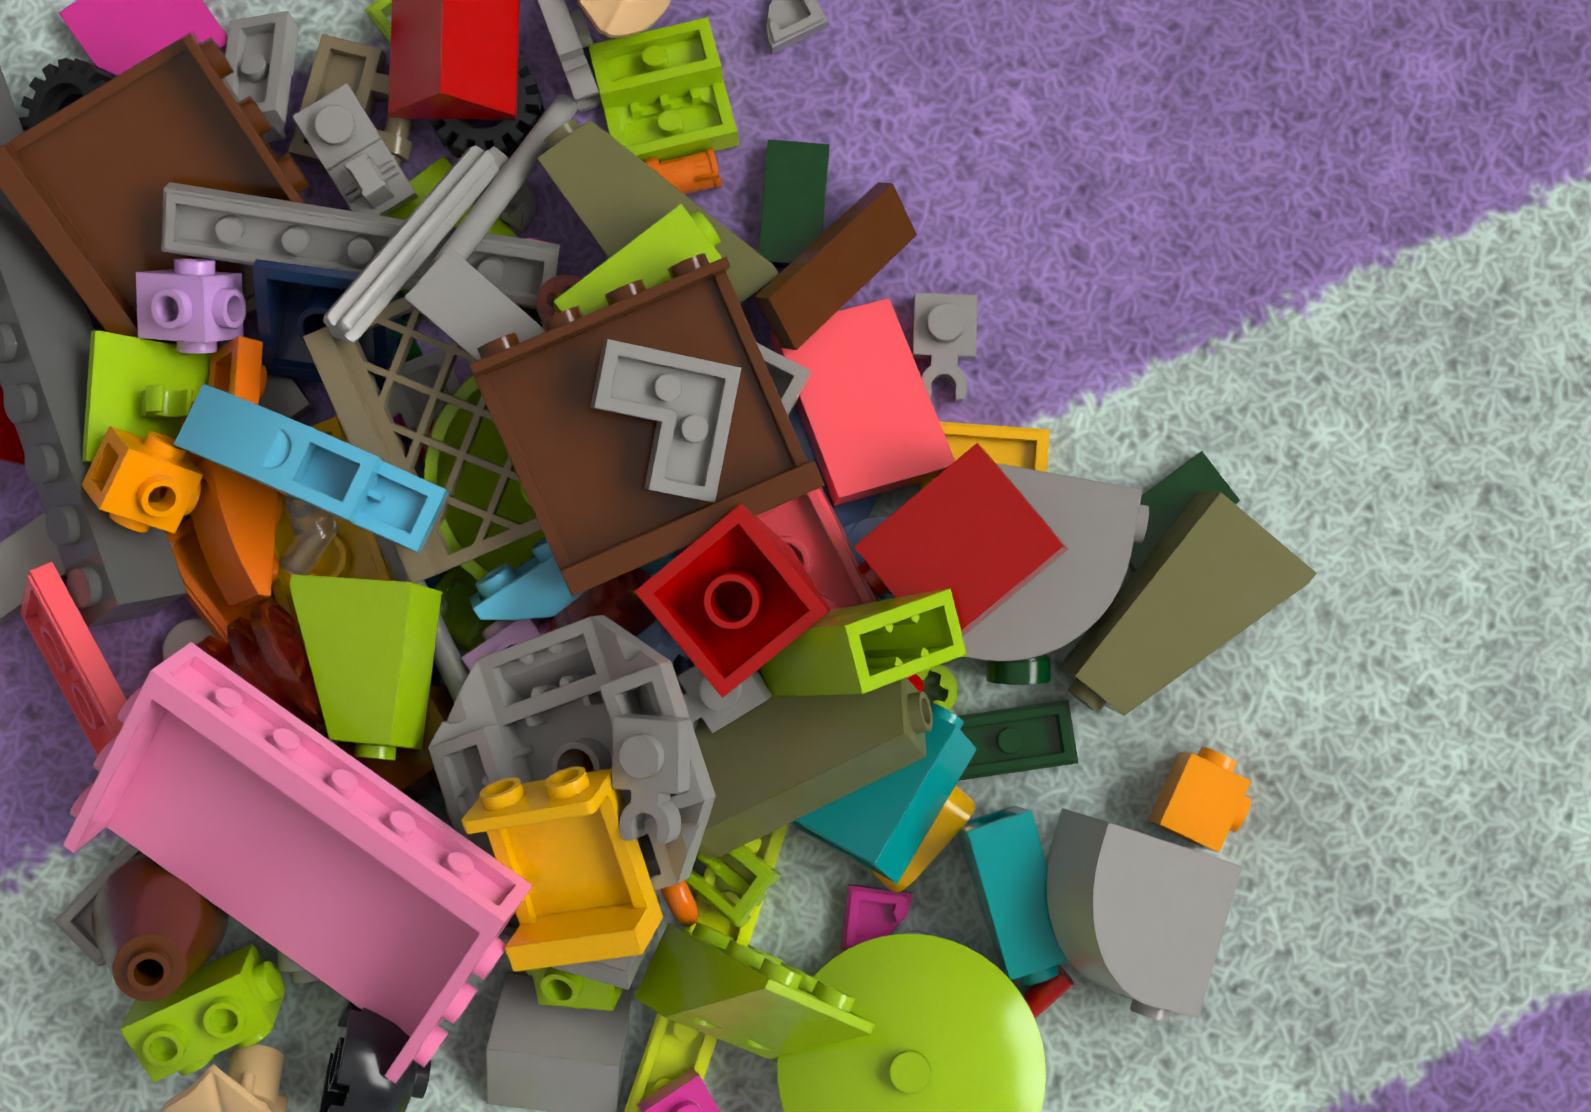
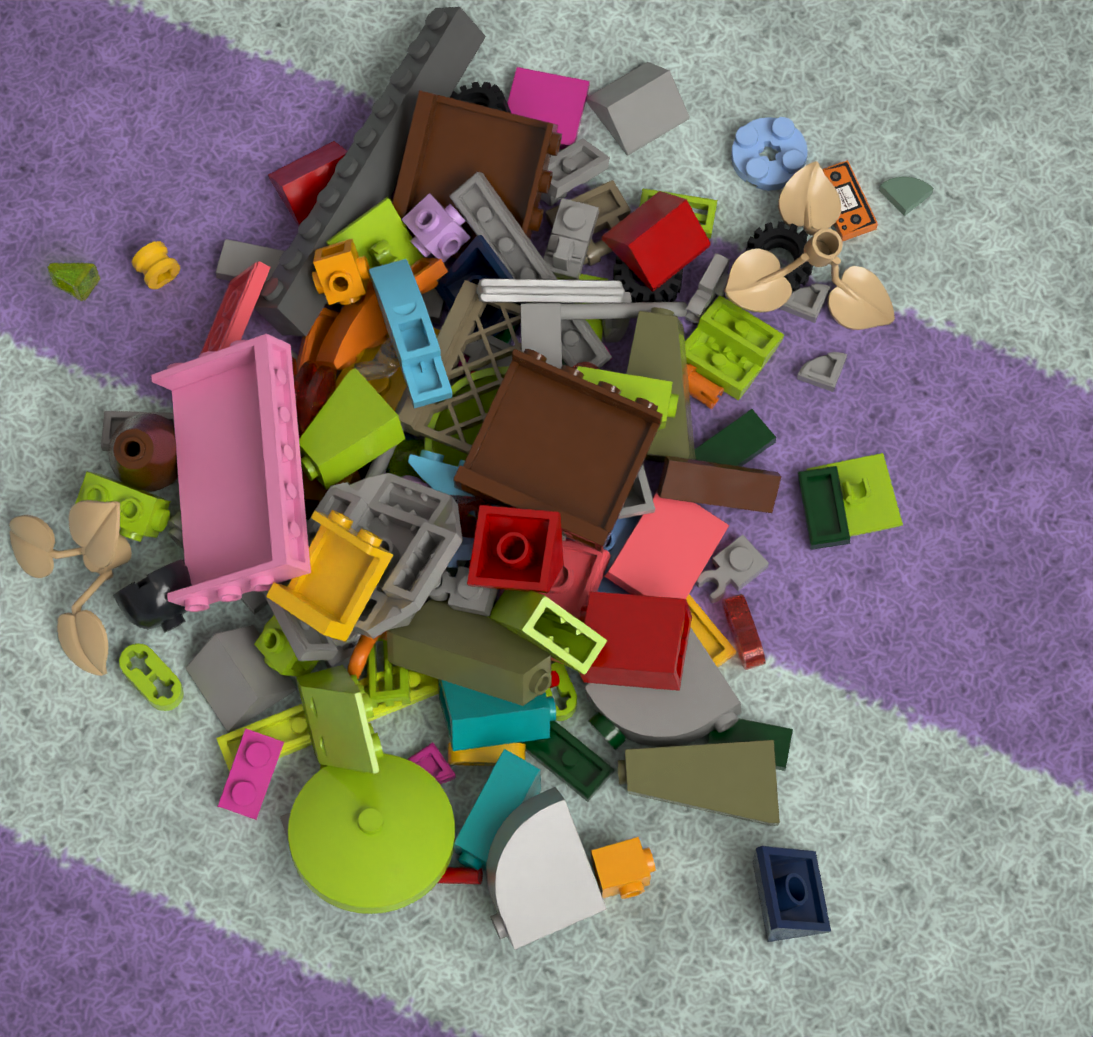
camera: 55 degrees right, 15 degrees down
(653, 763) = (409, 566): light grey plate -> none
(686, 398) = (584, 457): light grey plate -> none
(964, 169) = (823, 507): none -> dark green tile
(978, 122) = (867, 494): none -> lime piece
(1037, 400) = (743, 631): none -> clear red beam
(1395, 634) = (790, 893): none -> dark blue slope

